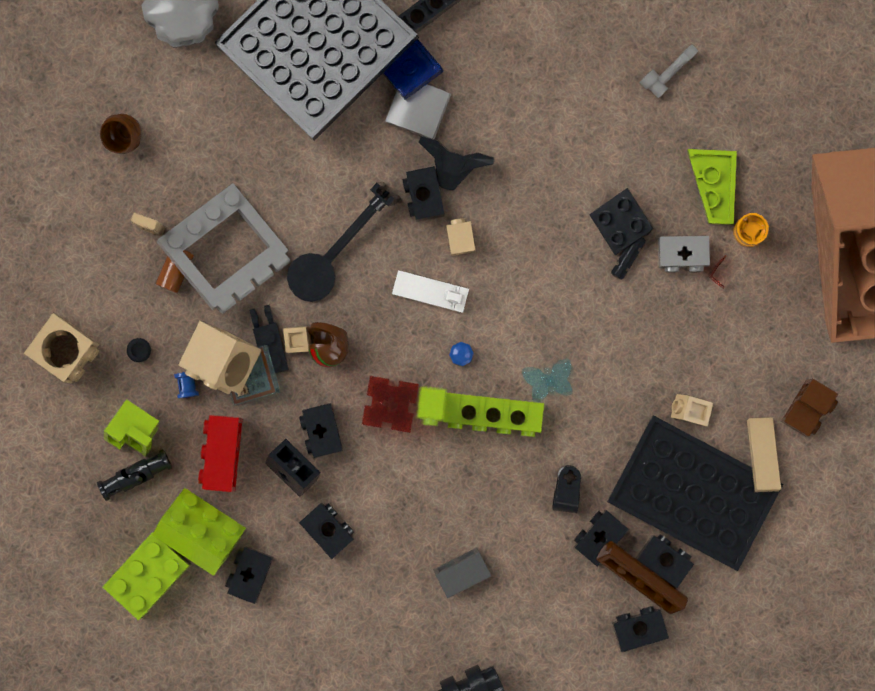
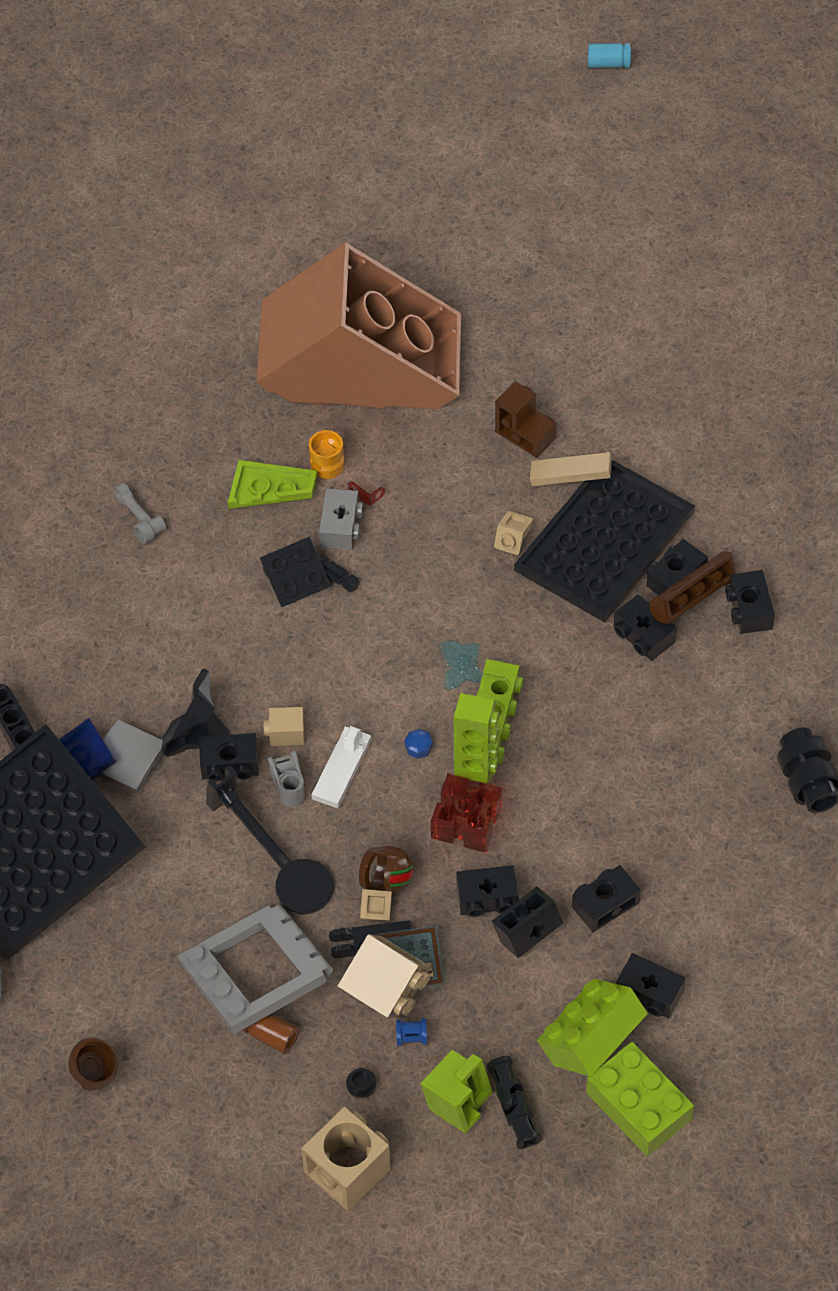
camera: 85 degrees left, 30 degrees down
(148, 224) = (210, 1035): tan tile -> none
(221, 453) = (500, 993): red brick -> none
(413, 246) = (286, 775): none -> light grey piece
(462, 572) = (669, 766): dark grey hinge -> none
(566, 494) = (587, 655): black piece -> none

